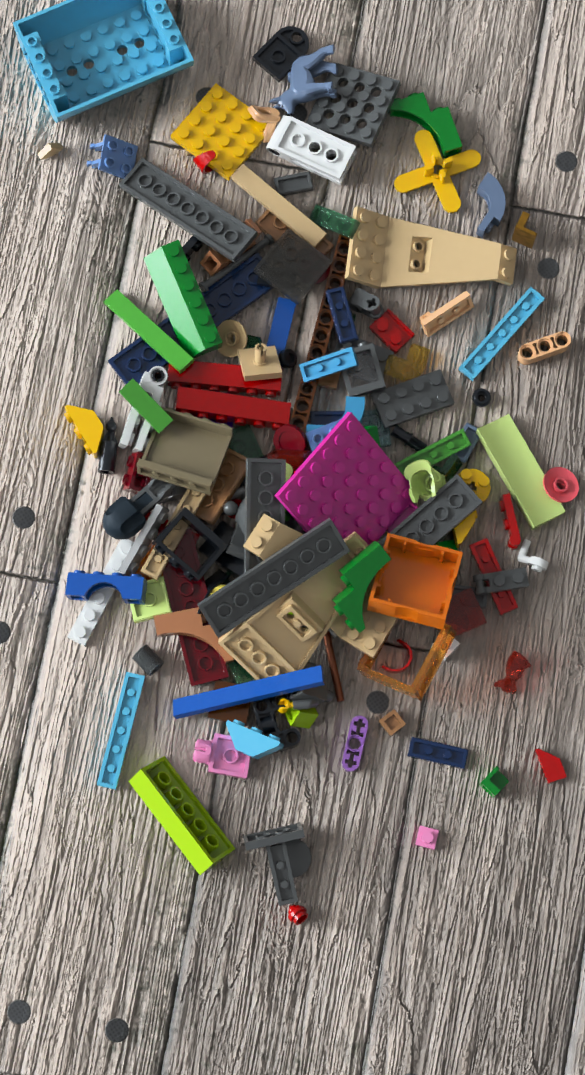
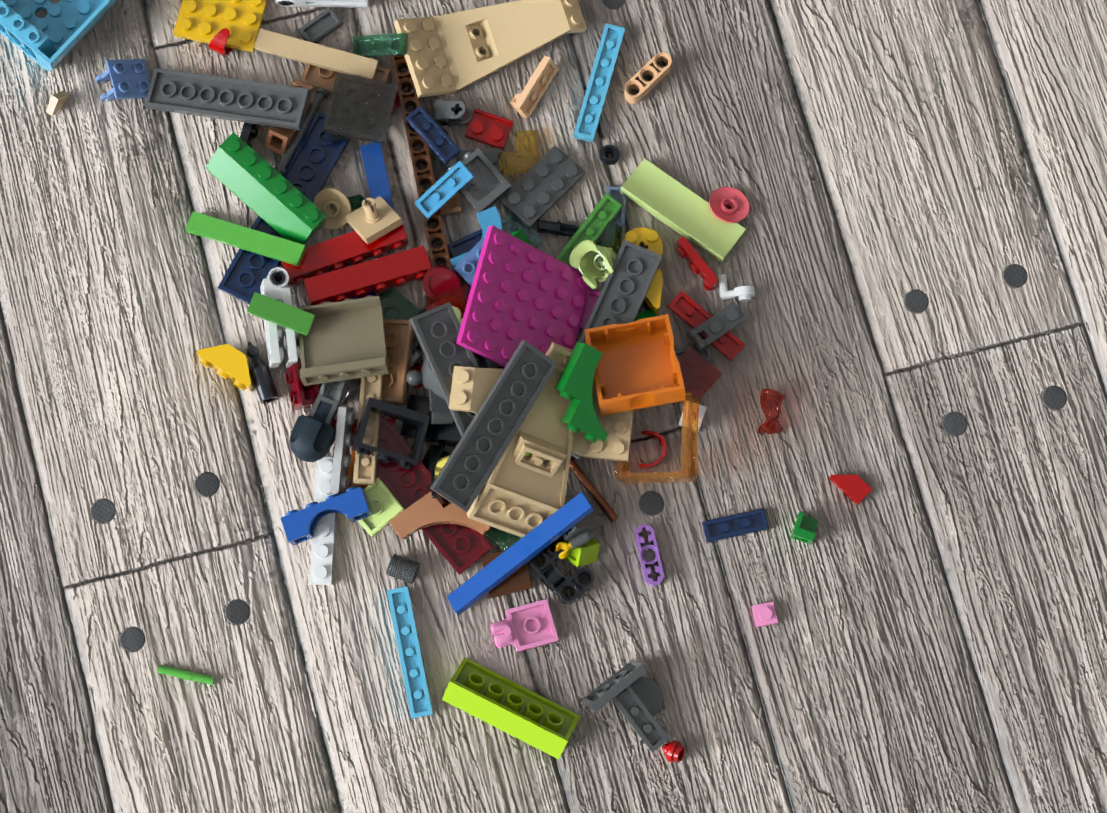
camera: 25 degrees left, 0 degrees up
(252, 741) = (547, 601): medium azure slope -> none
(287, 358) = (398, 202): black tile -> none
(392, 722) = (676, 517): medium nougat plate -> none

